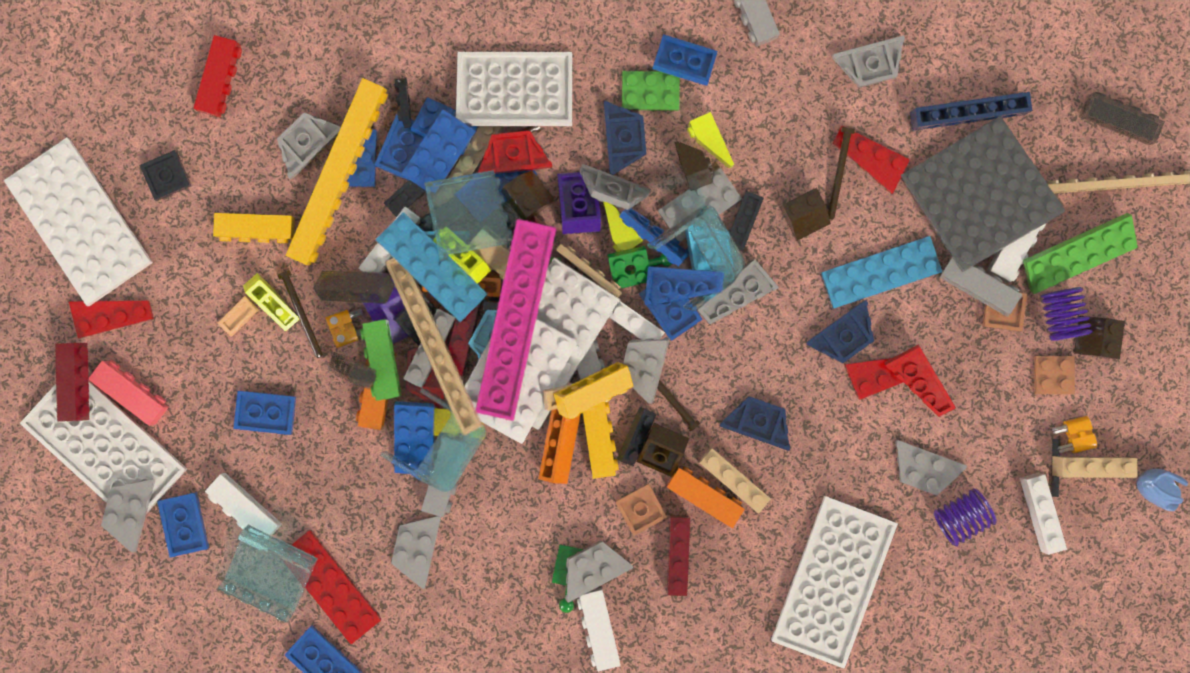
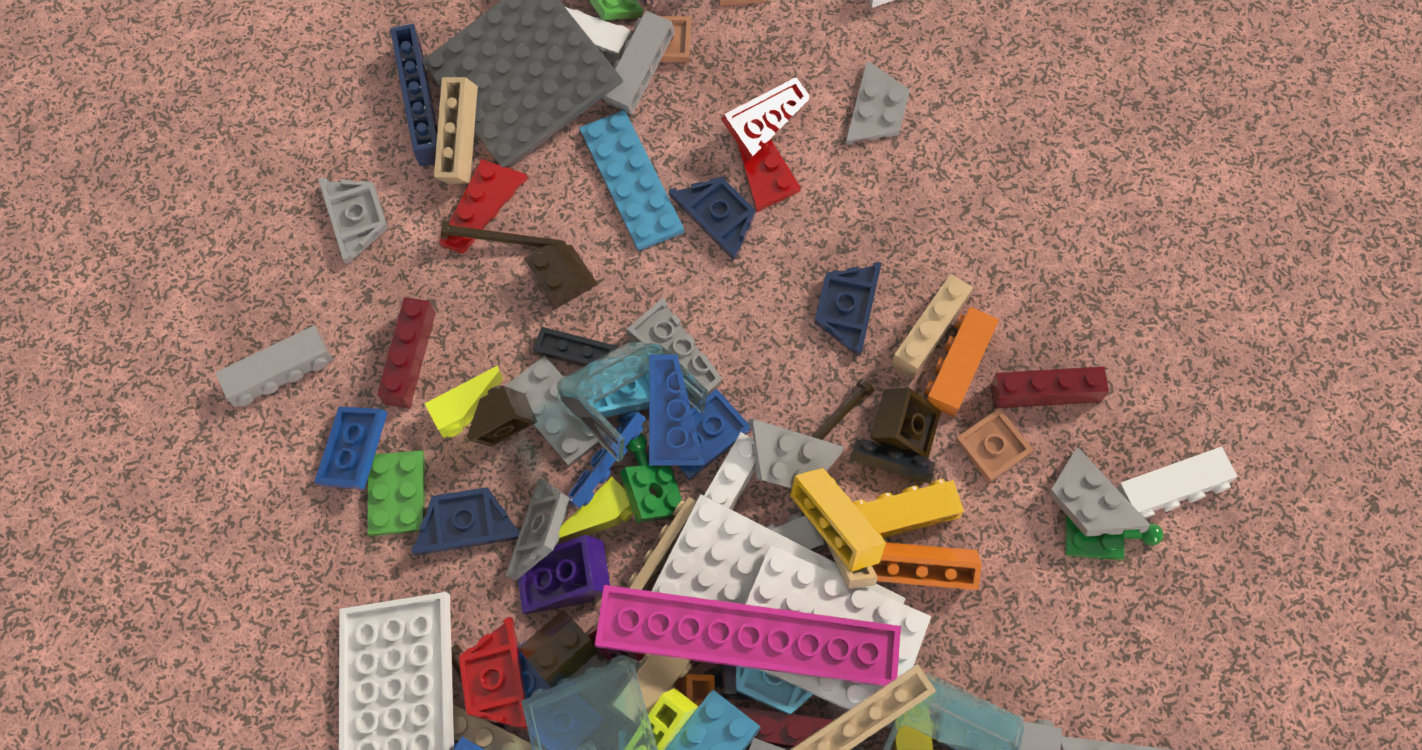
camera: 90 degrees left, 20 degrees down
(753, 100) = (406, 353): none -> dark red brick
(834, 582) = (1044, 195): white plate -> none
(930, 140) = (455, 130): none -> tan brick
(964, 511) = (942, 62): dark purple piece -> none

